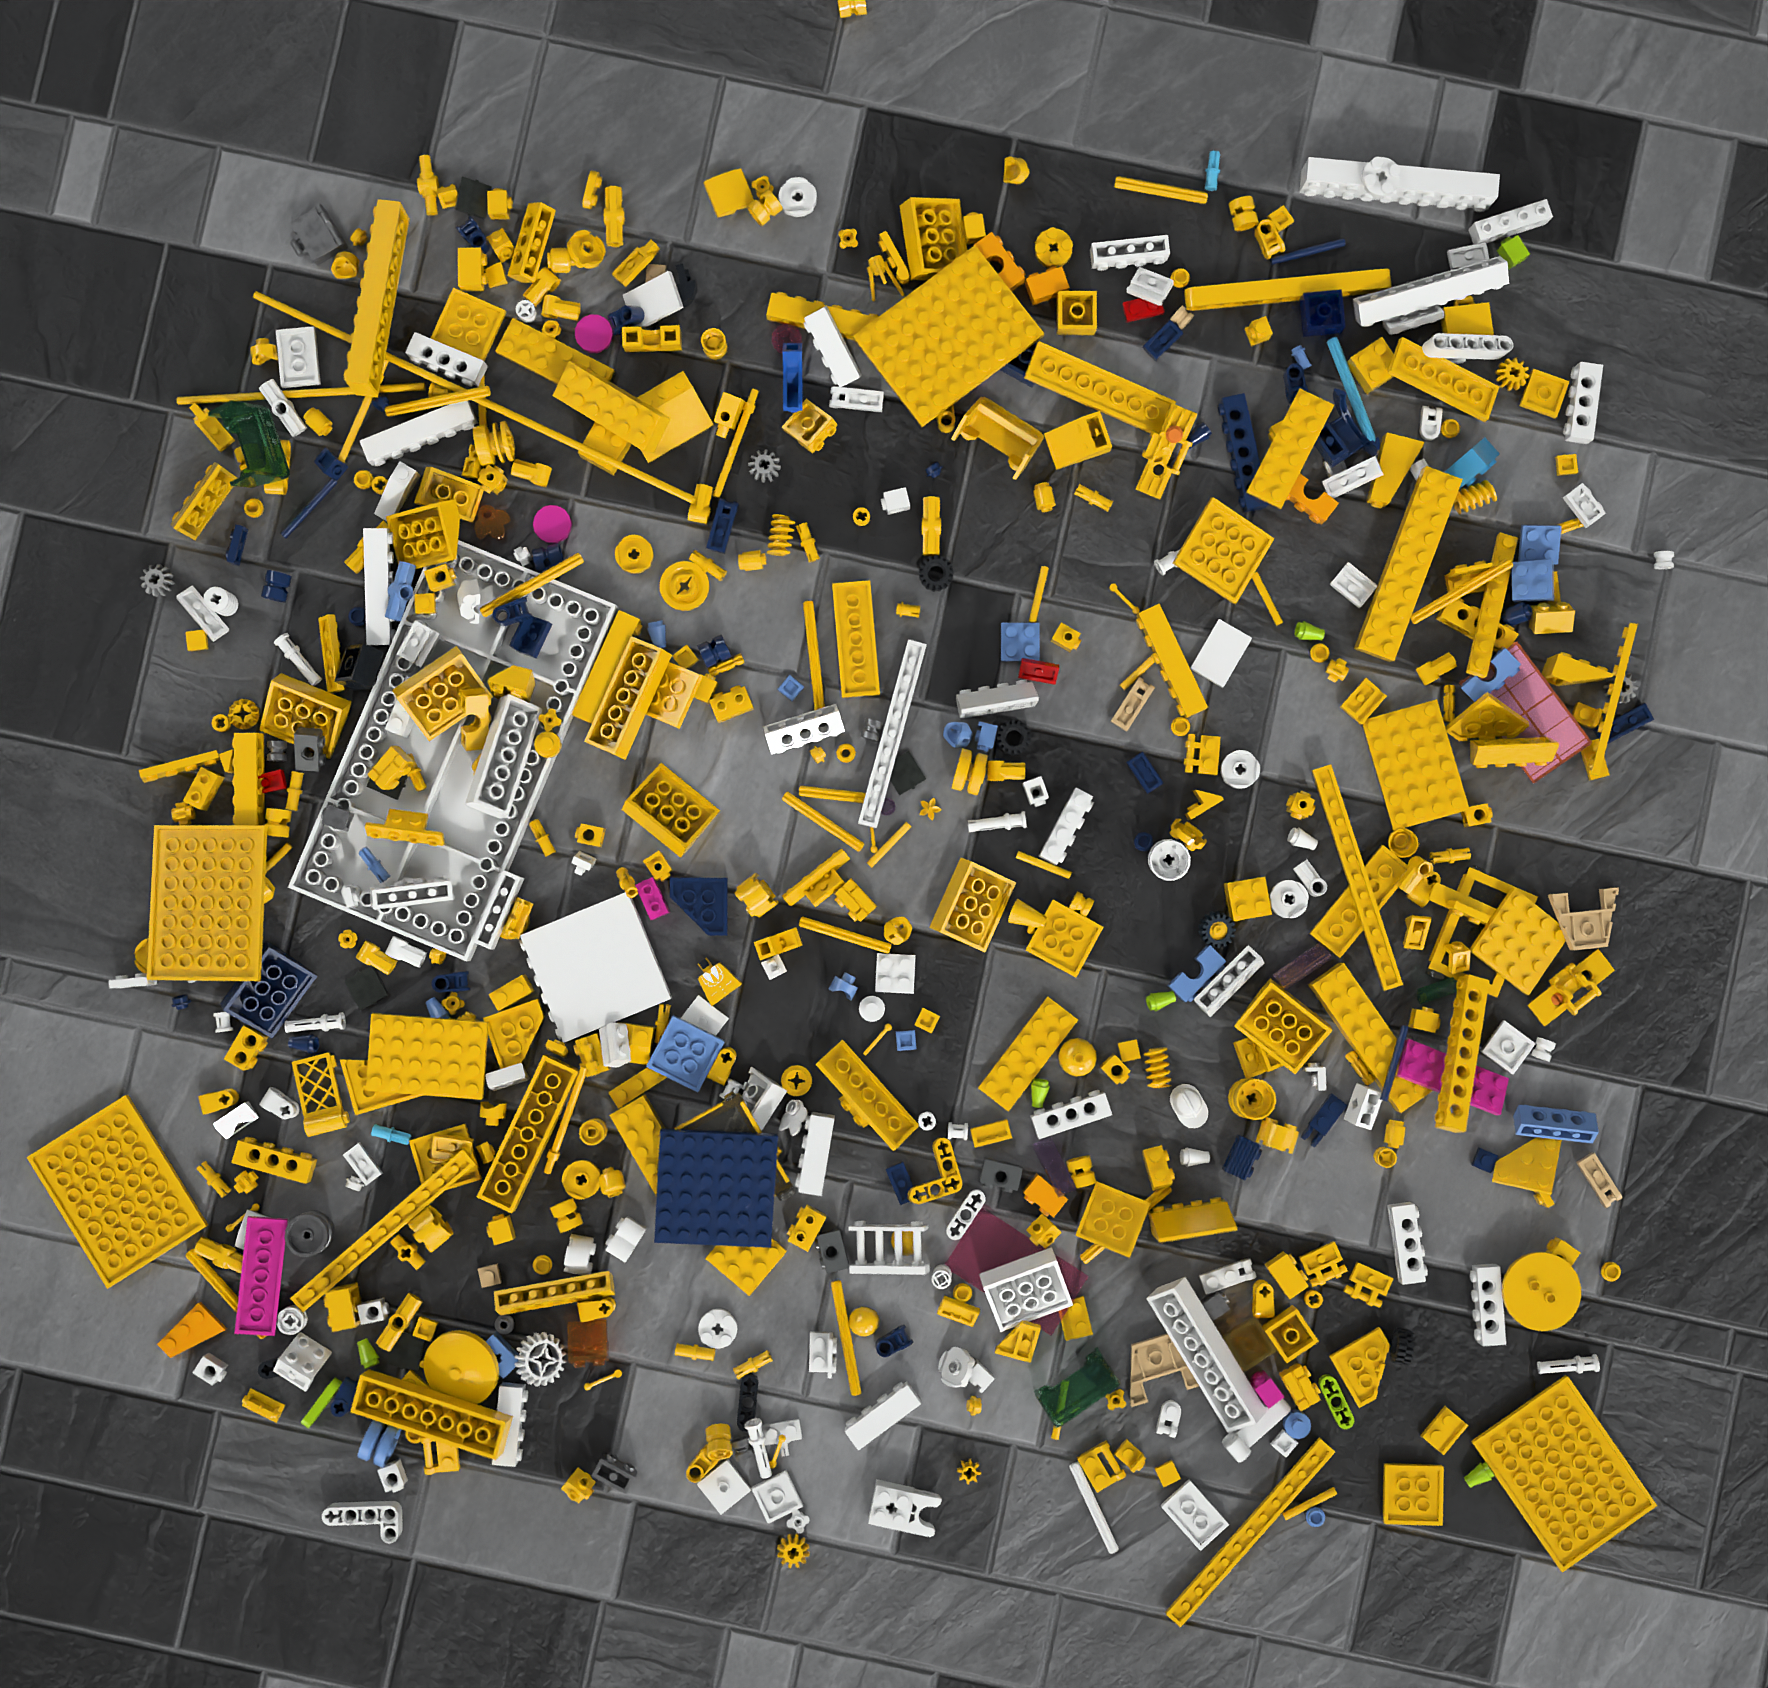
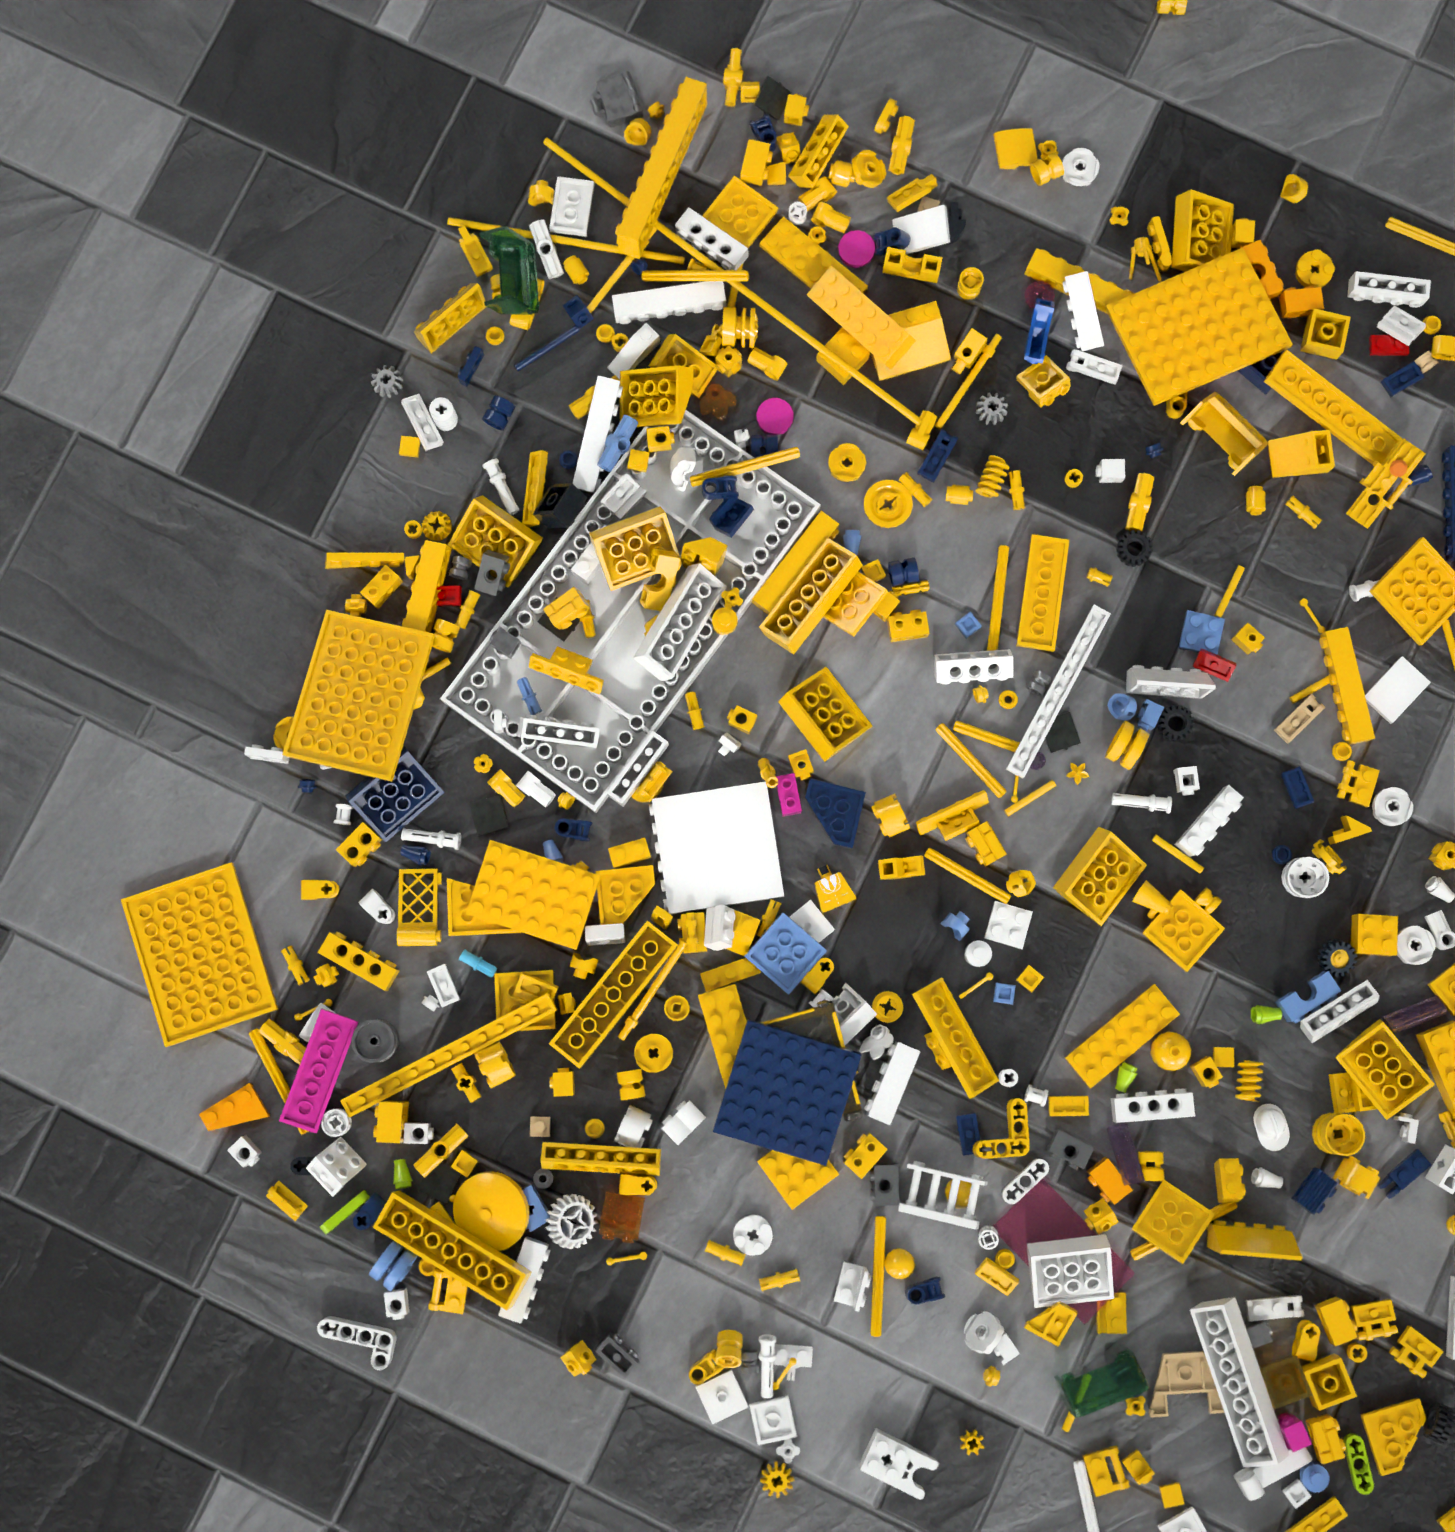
camera: 20 degrees right, 5 degrees down
(236, 1120) = (331, 913): slope -> none
(453, 998) = (569, 845): yellow plate -> none
(611, 1182) = (682, 1063): yellow head -> none
(754, 1388) = (755, 1329): black beam -> none
(774, 967) = (890, 890): white tile -> none
(882, 1415) = (897, 1363): white brick -> none
(1000, 770) = (1156, 752): yellow piece -> none
(1169, 1411) = (1188, 1432): white plate -> none

